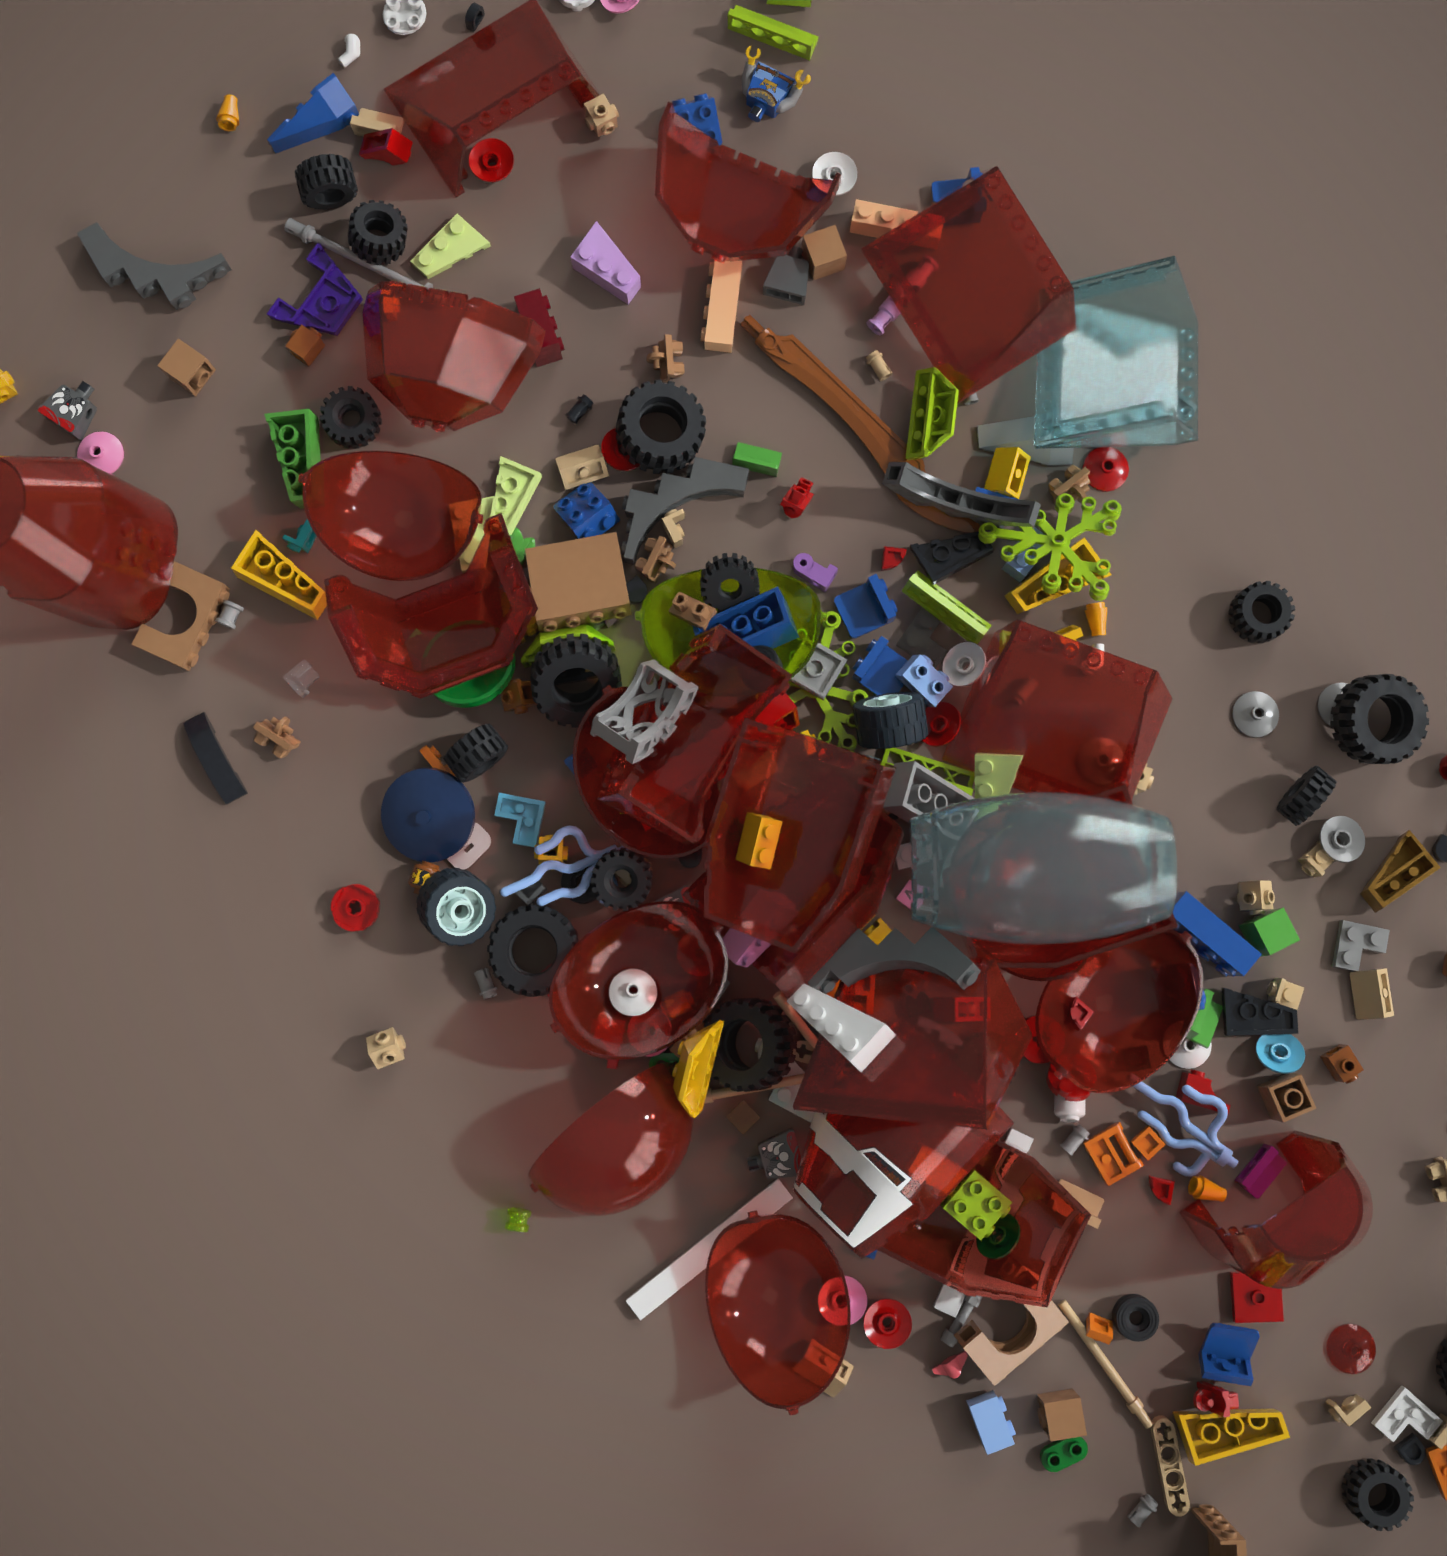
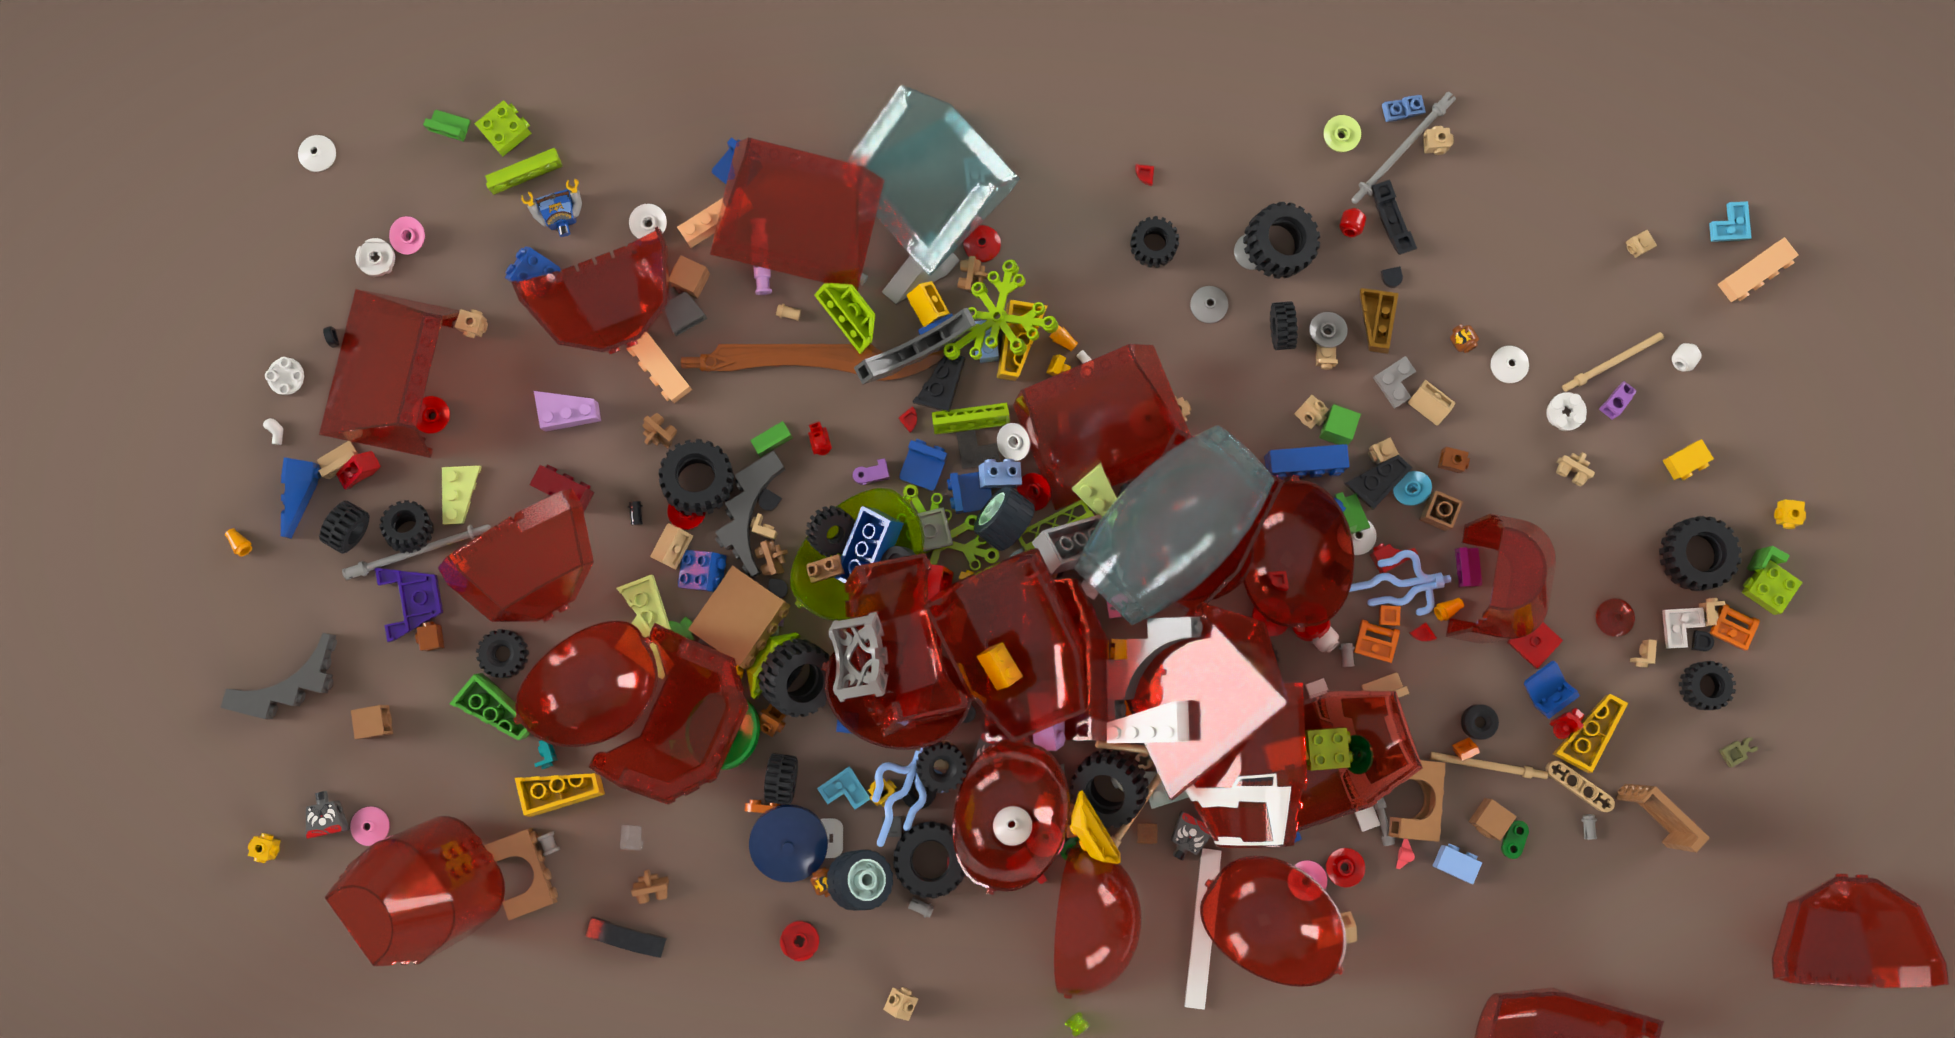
camera: 40 degrees left, 0 degrees up
(702, 509) = (768, 500): none -> black tile
(1311, 546) = (1145, 173): none -> red tile

